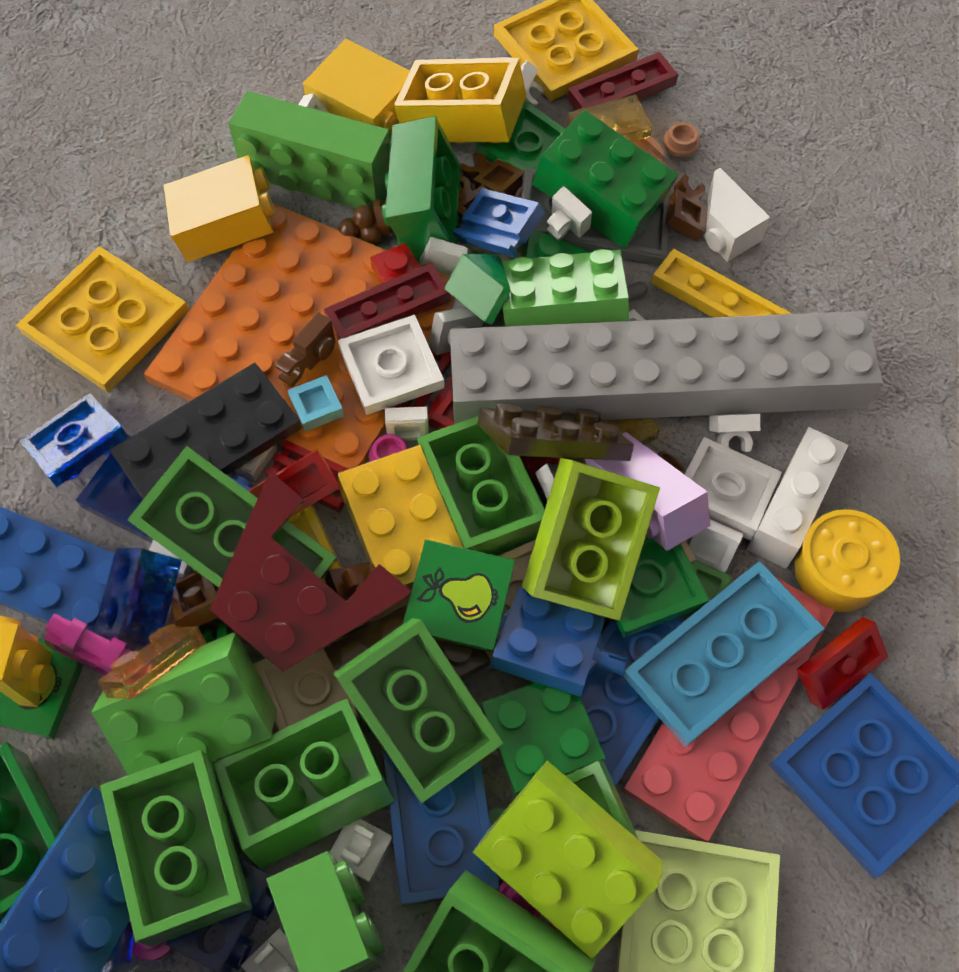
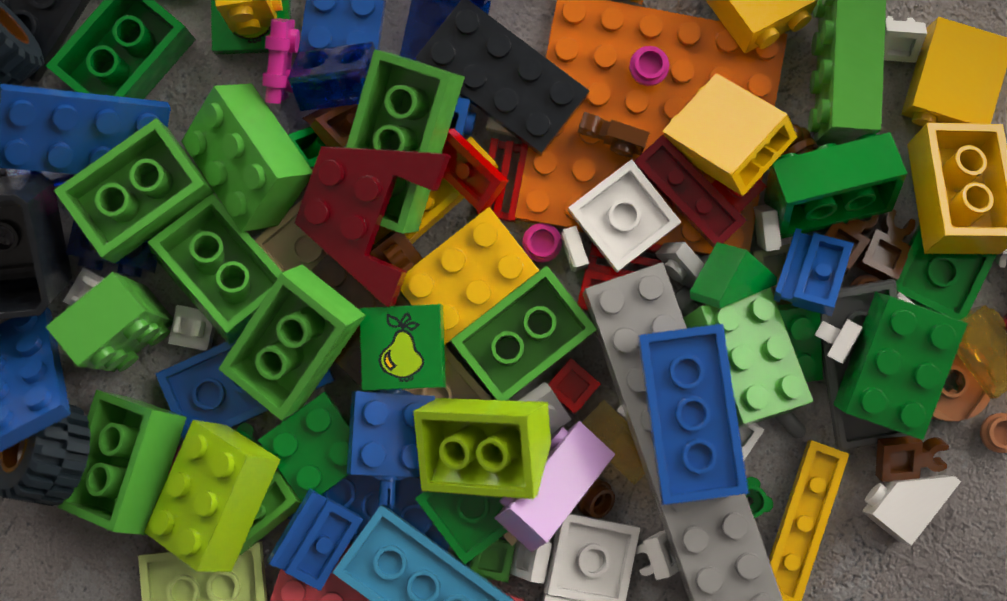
camera: 75 degrees right, 20 degrees up
(142, 668) = (270, 115): clear orange plate -> none
(252, 307) = (649, 66): none -> dark pink plate
(315, 403) = (562, 161): medium azure plate -> none
(345, 246) = (730, 133): none -> yellow brick
(554, 433) = (576, 390): dark brown plate -> none
(609, 331) = (692, 414): none -> blue plate
(646, 754) = (315, 539): none -> blue plate

